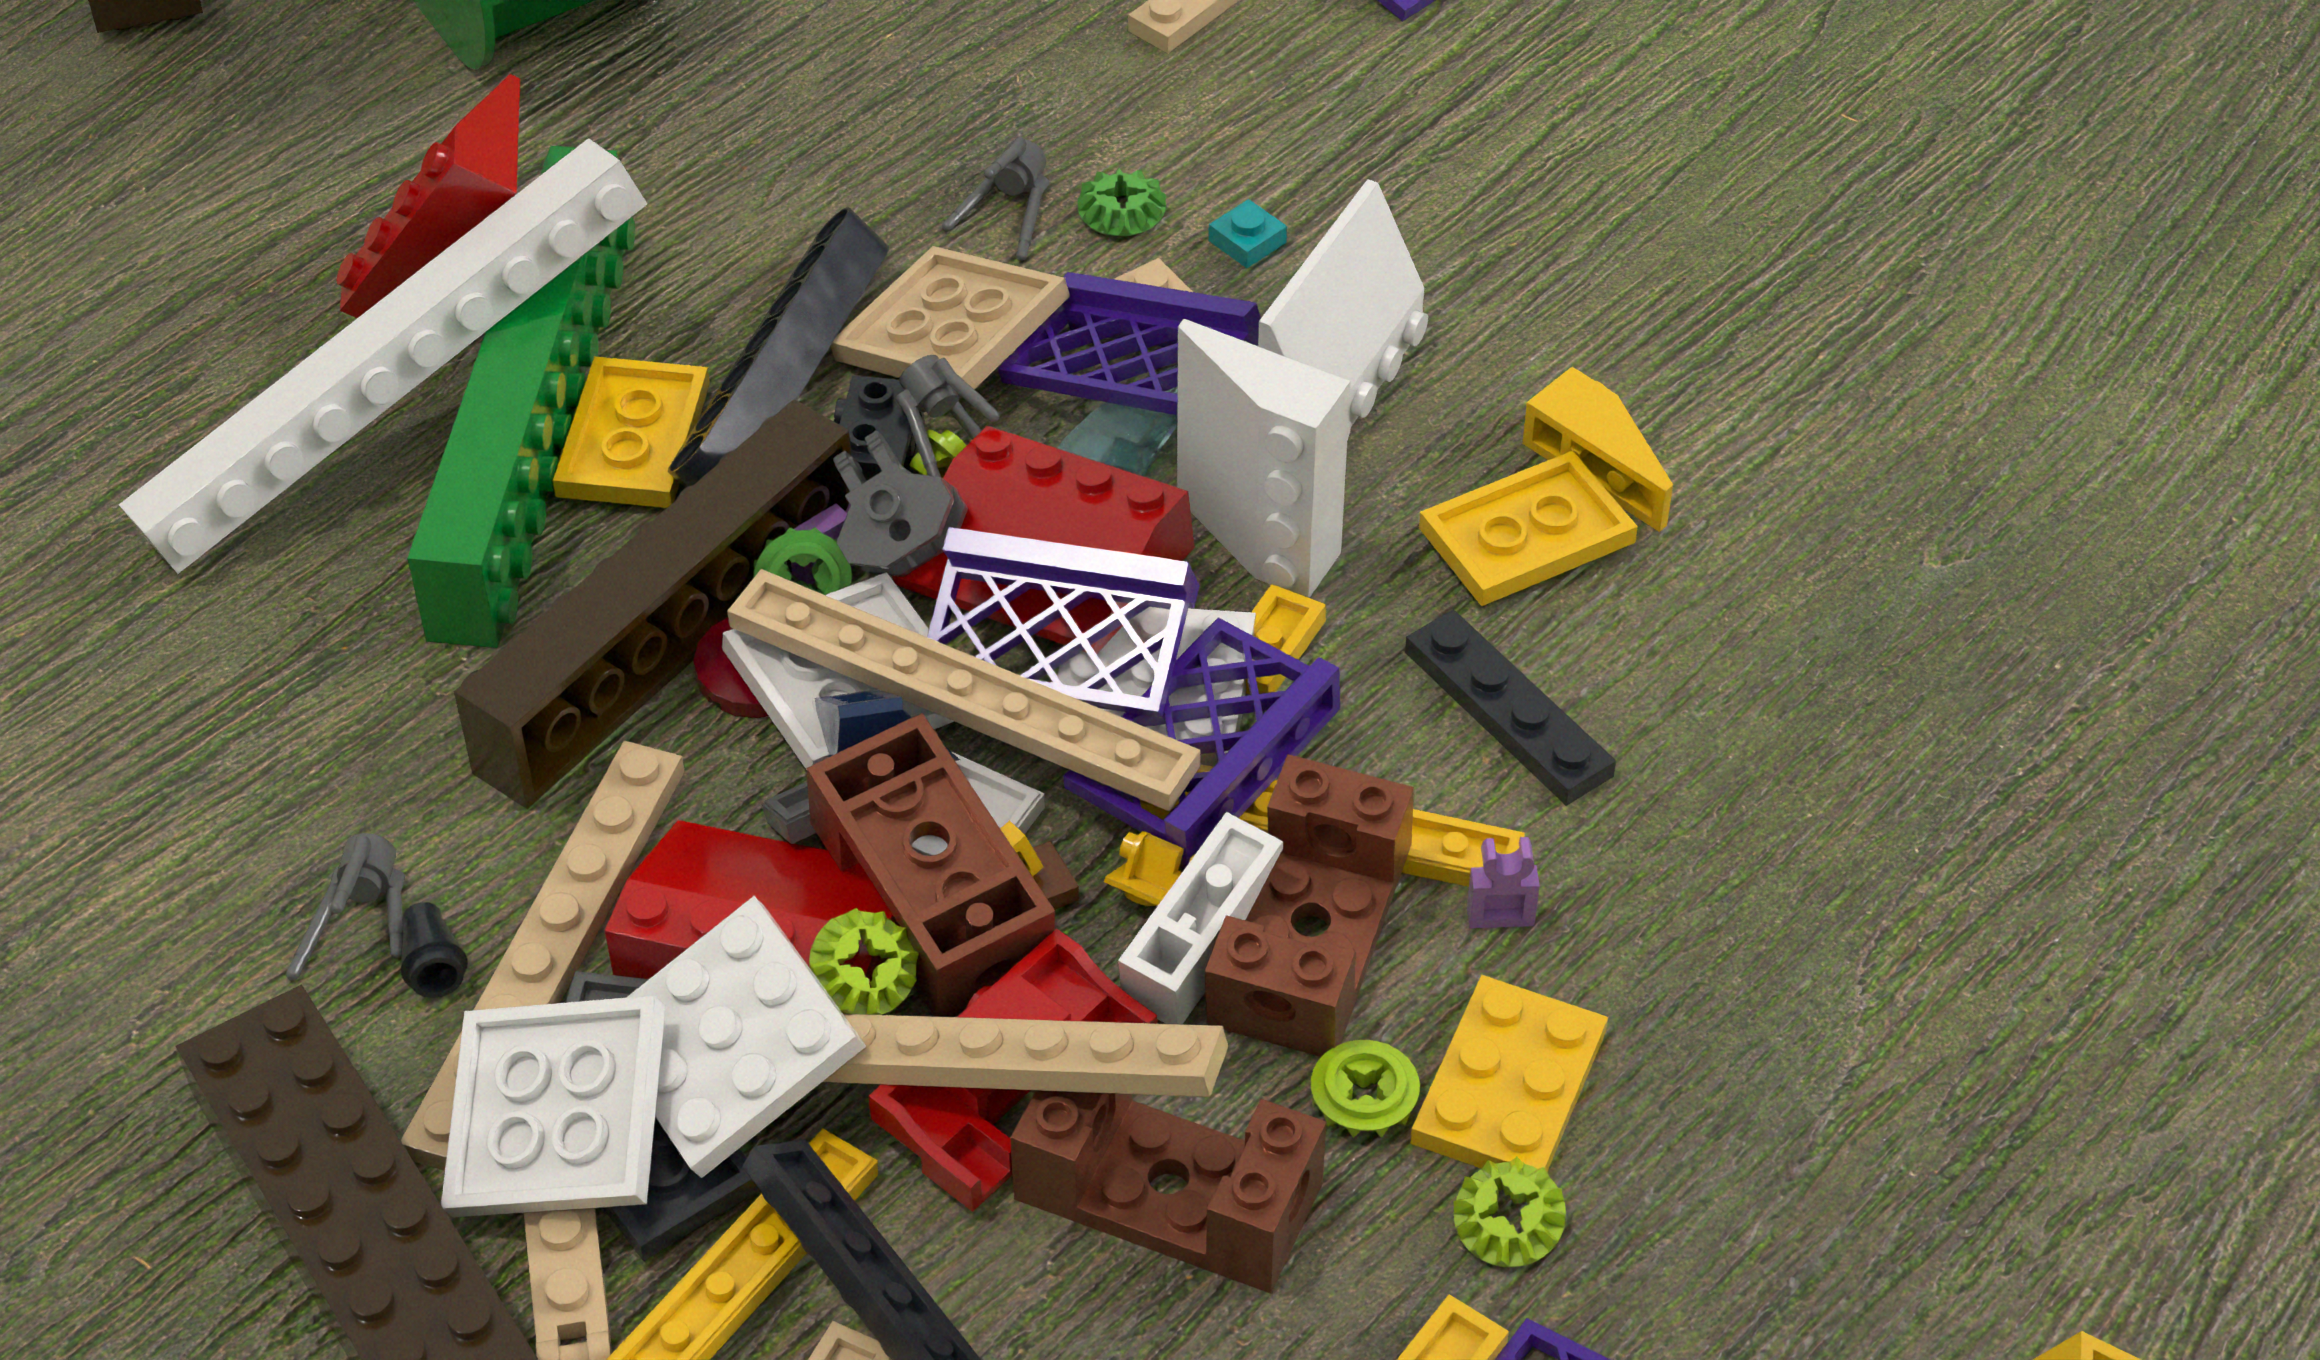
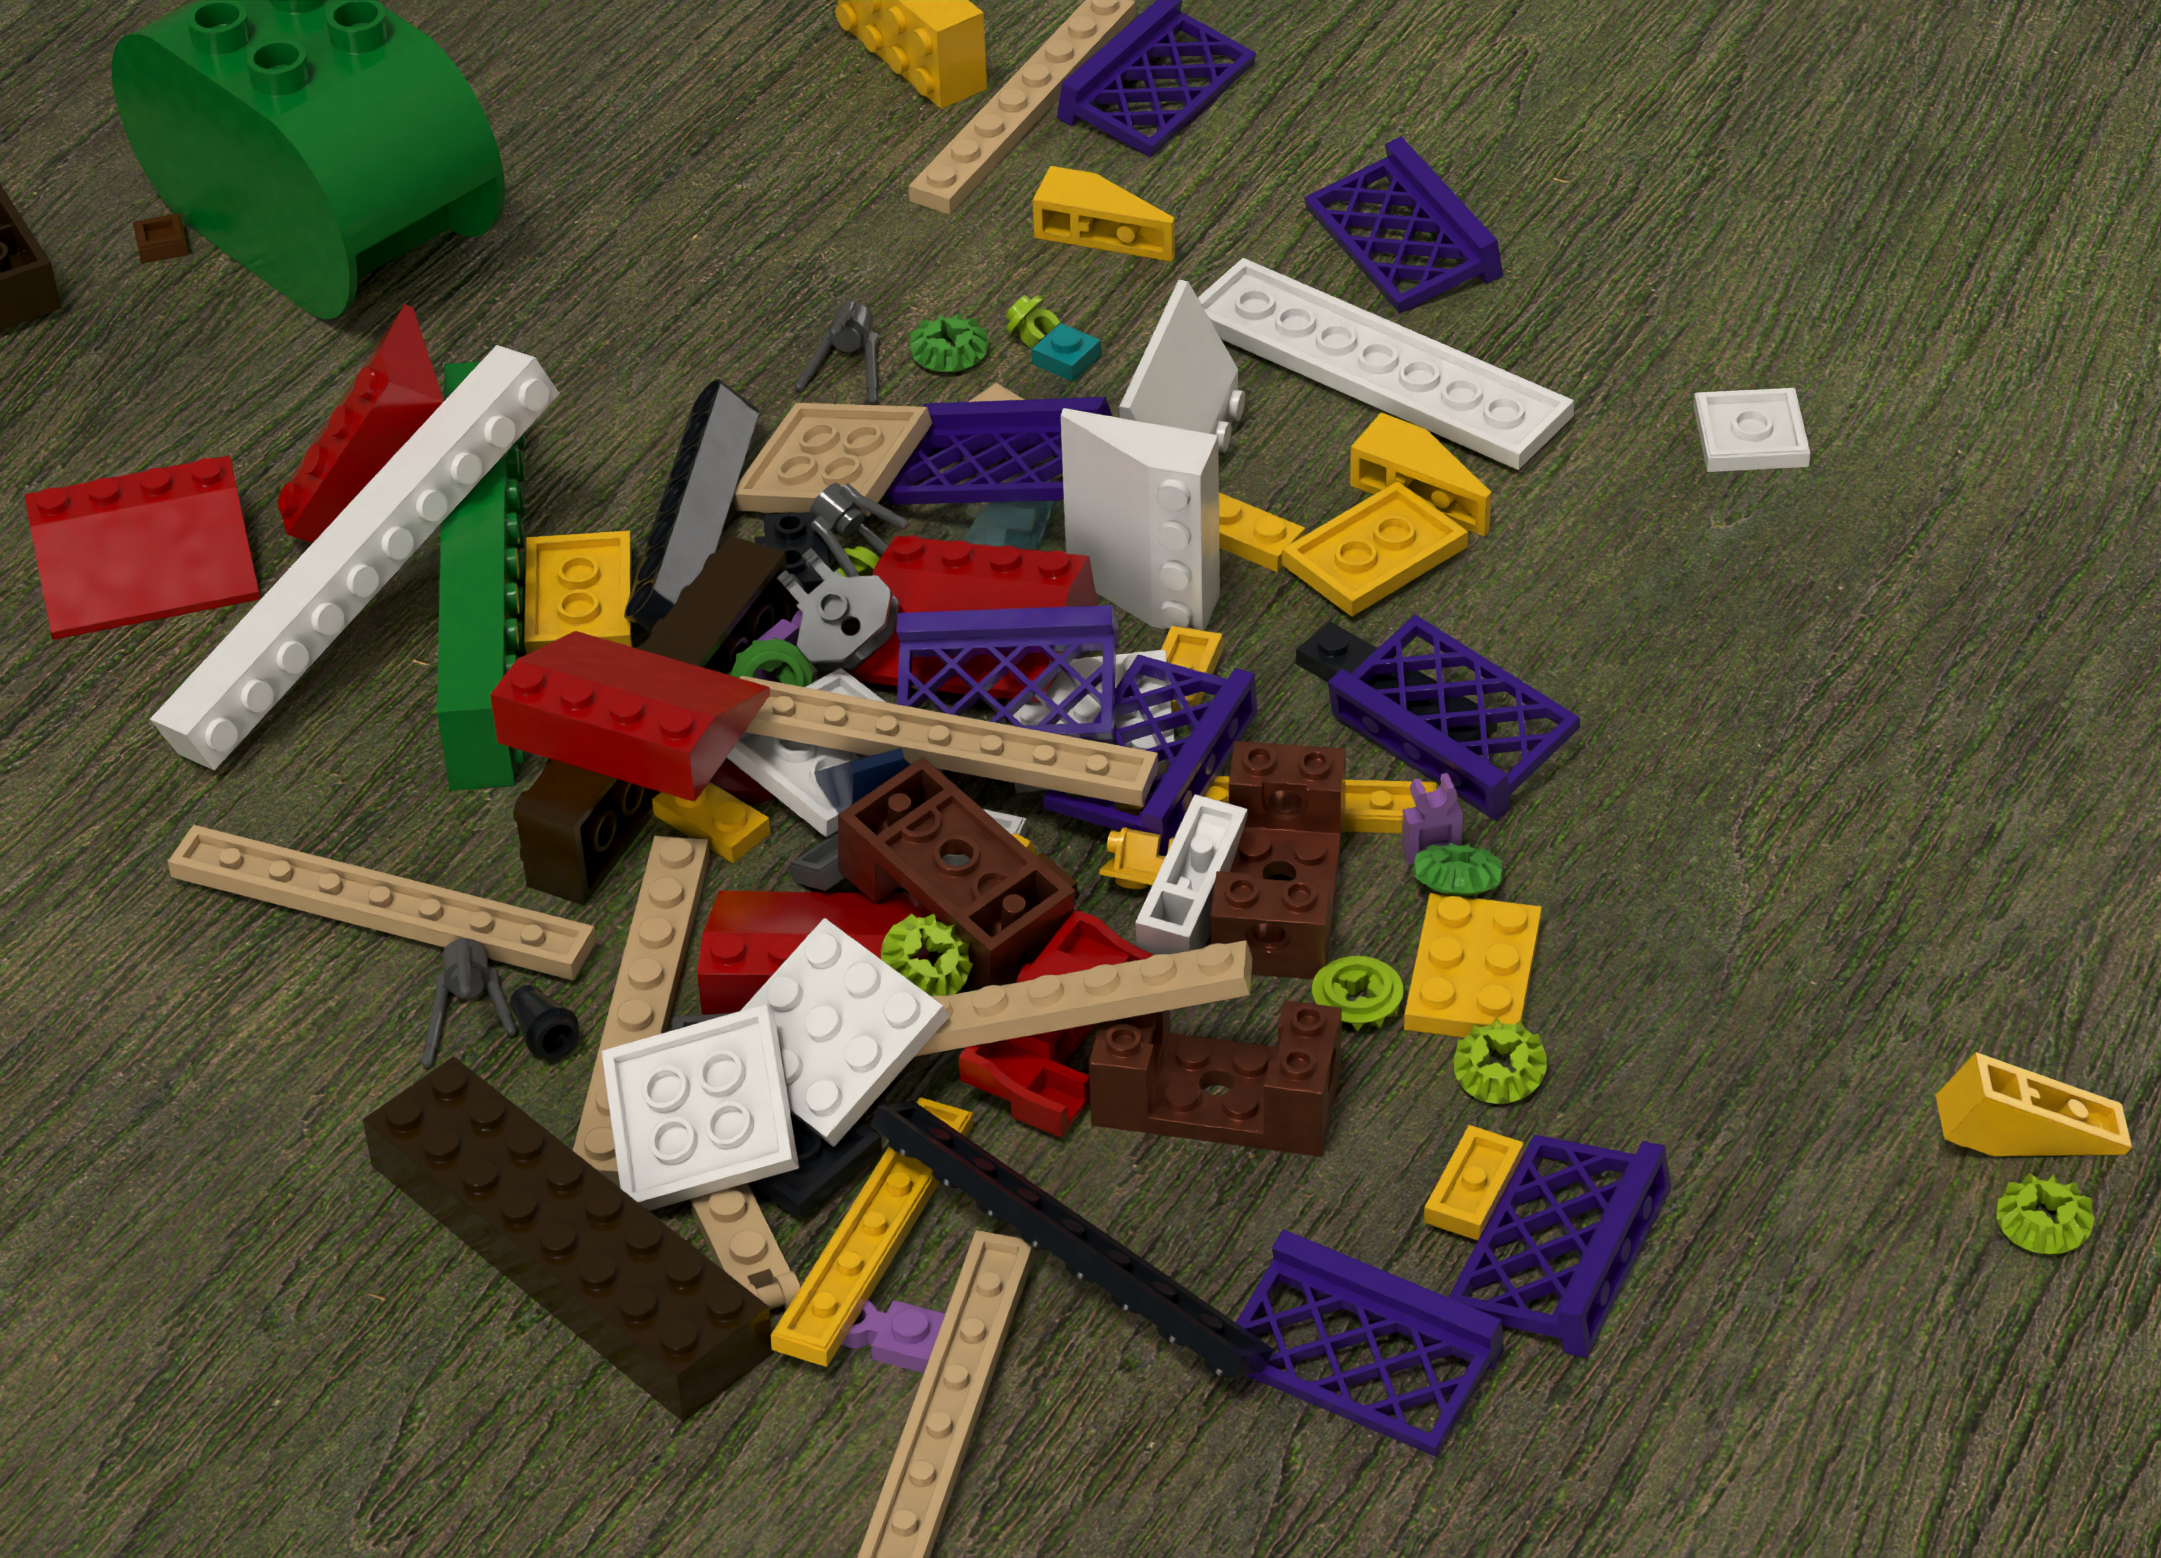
camera: 10 degrees left, 5 degrees down
(186, 298) = (141, 547): none -> red slope
(305, 768) = (381, 901): none -> tan plate
(607, 596) = (624, 712): none -> red slope
(697, 726) = (715, 816): none -> yellow plate
(1213, 183) = (1026, 315): none -> lime plate
(1324, 80) = (1100, 215): none -> yellow slope
(1392, 481) = (1254, 532): none -> yellow plate
(1521, 951) = (1458, 869): none -> bright green gear
(1527, 791) = (1417, 737): none -> dark purple fence
(1594, 306) = (1384, 364): none -> white plate
(1703, 141) = (1434, 211): none -> dark purple fence
(1996, 453) = (1751, 429): none -> white tile

